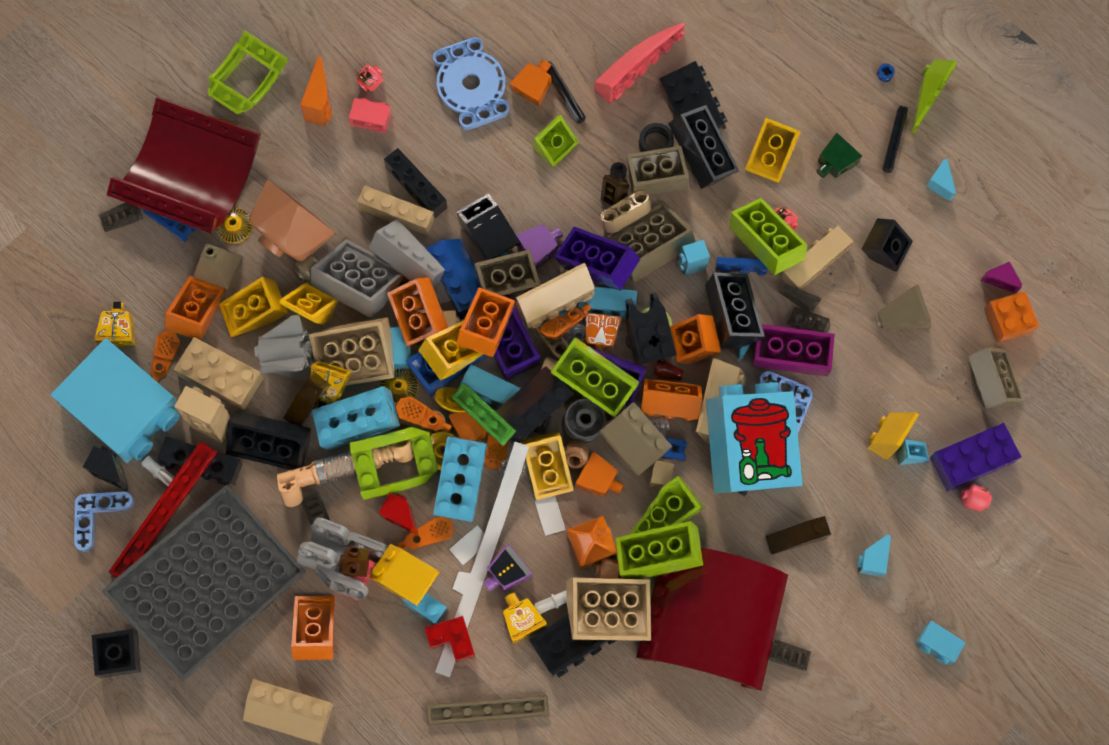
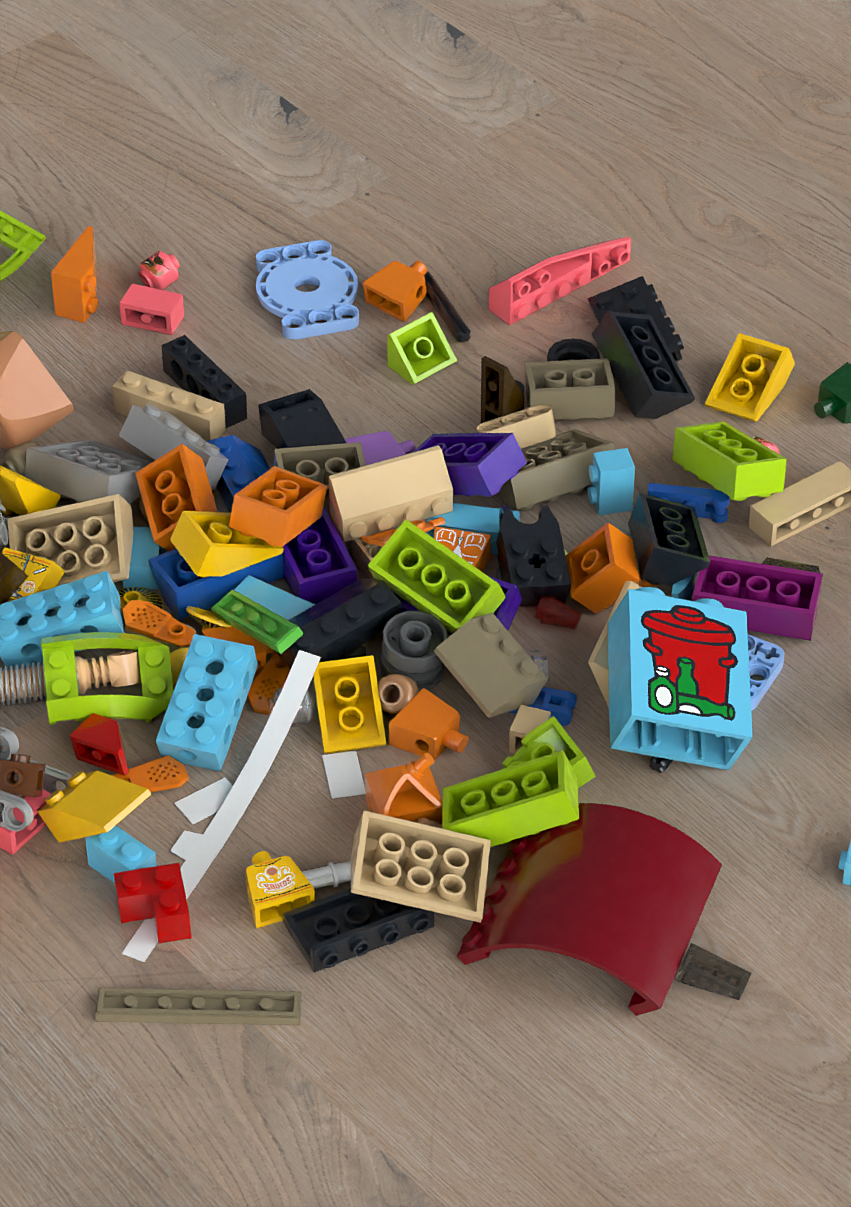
camera: 10 degrees right, 30 degrees down
(507, 571) = (263, 826): torso -> none
(671, 399) = (555, 632): orange brick -> none
(799, 535) = (749, 820): dark brown slope -> none
(801, 298) = (783, 546): clear smoke slope -> none

